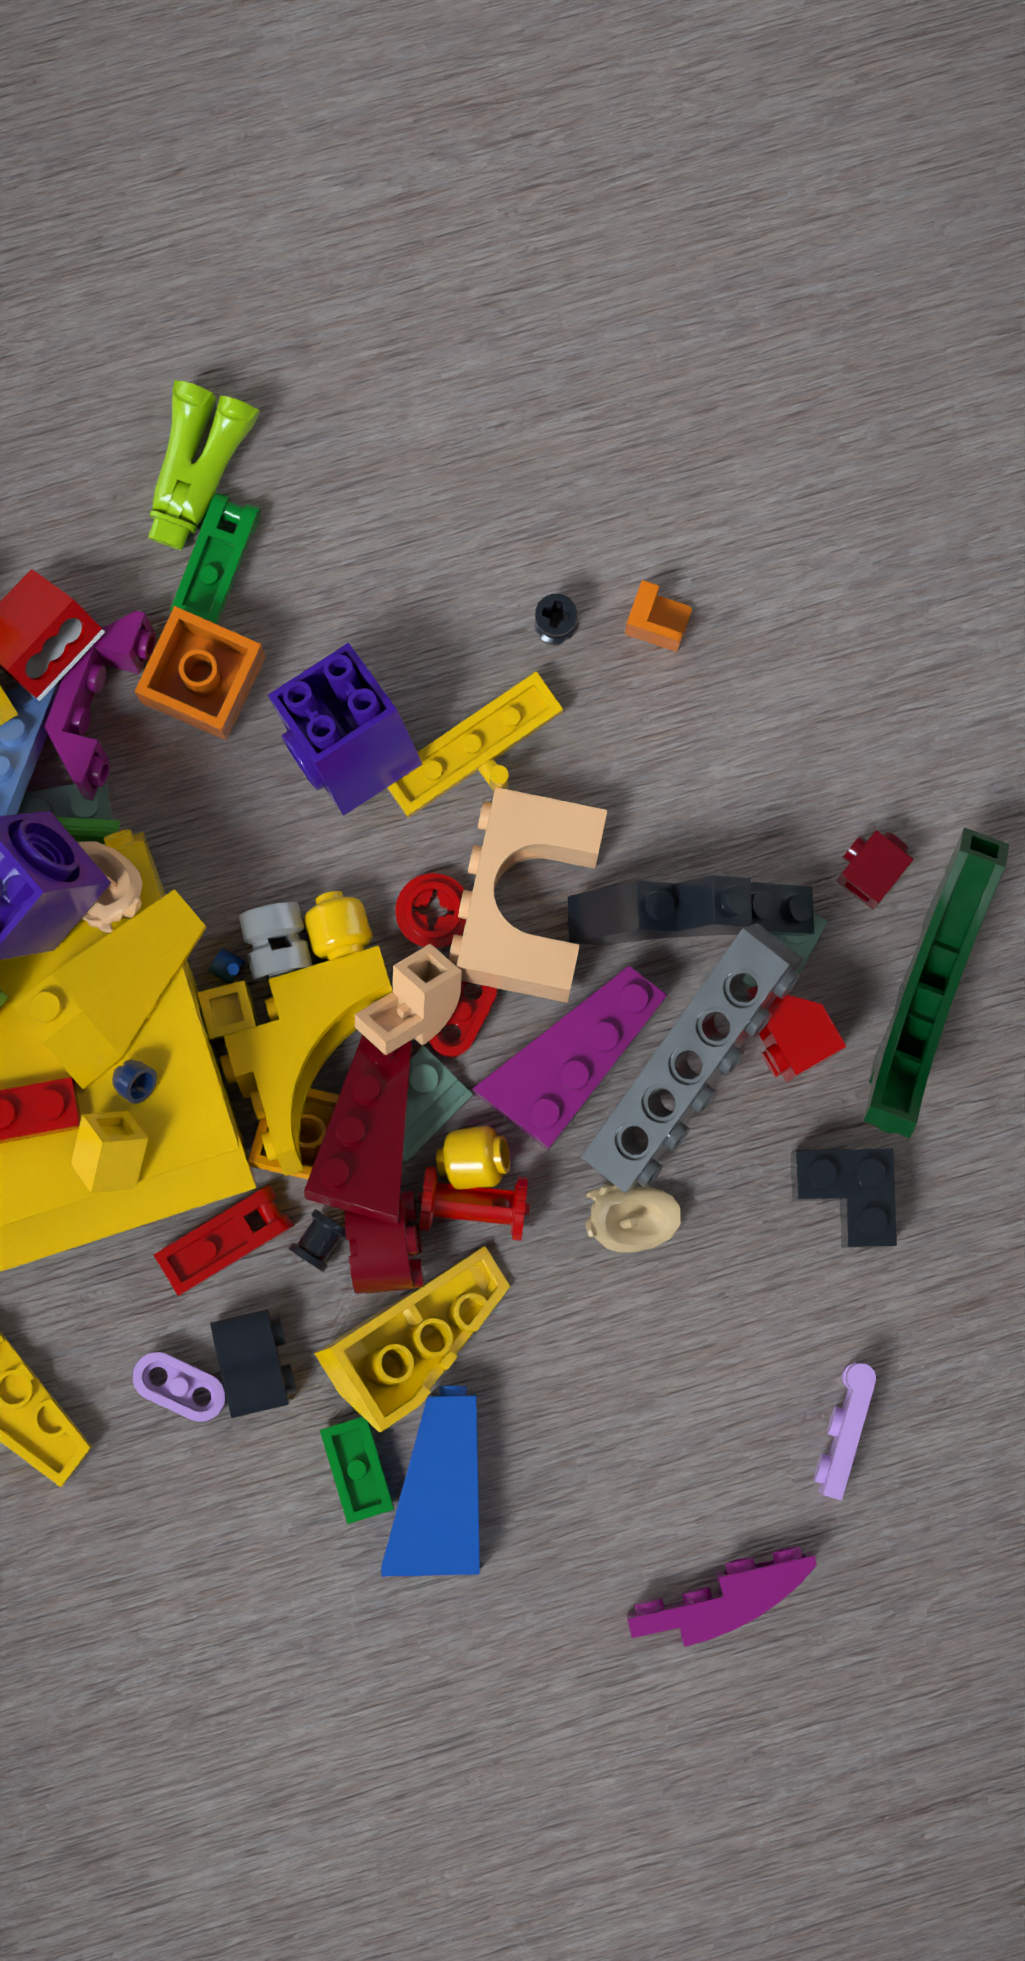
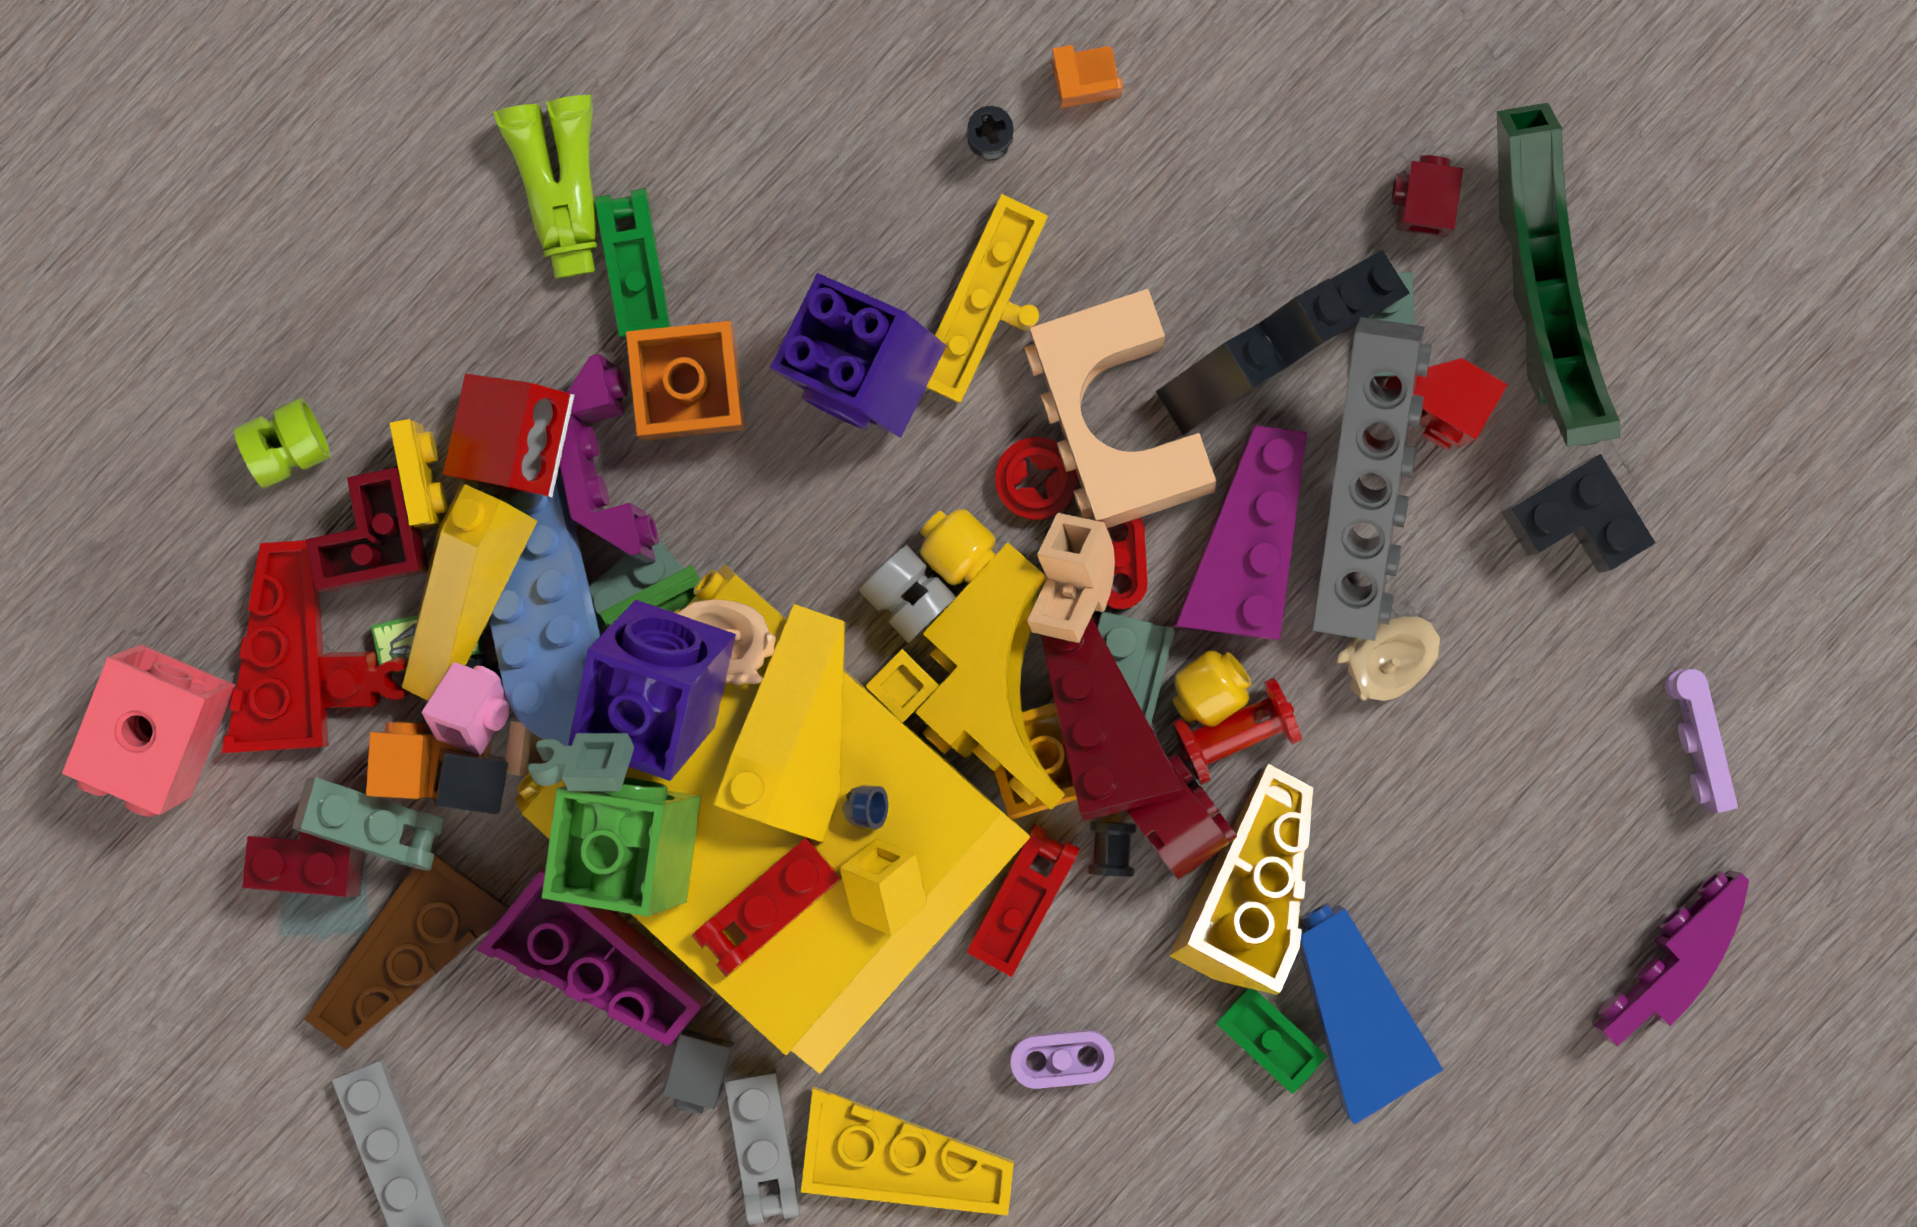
camera: 25 degrees left, 5 degrees up
(226, 966) = (873, 643): blue hand -> none
(251, 1362) = (1116, 998): black brick -> none

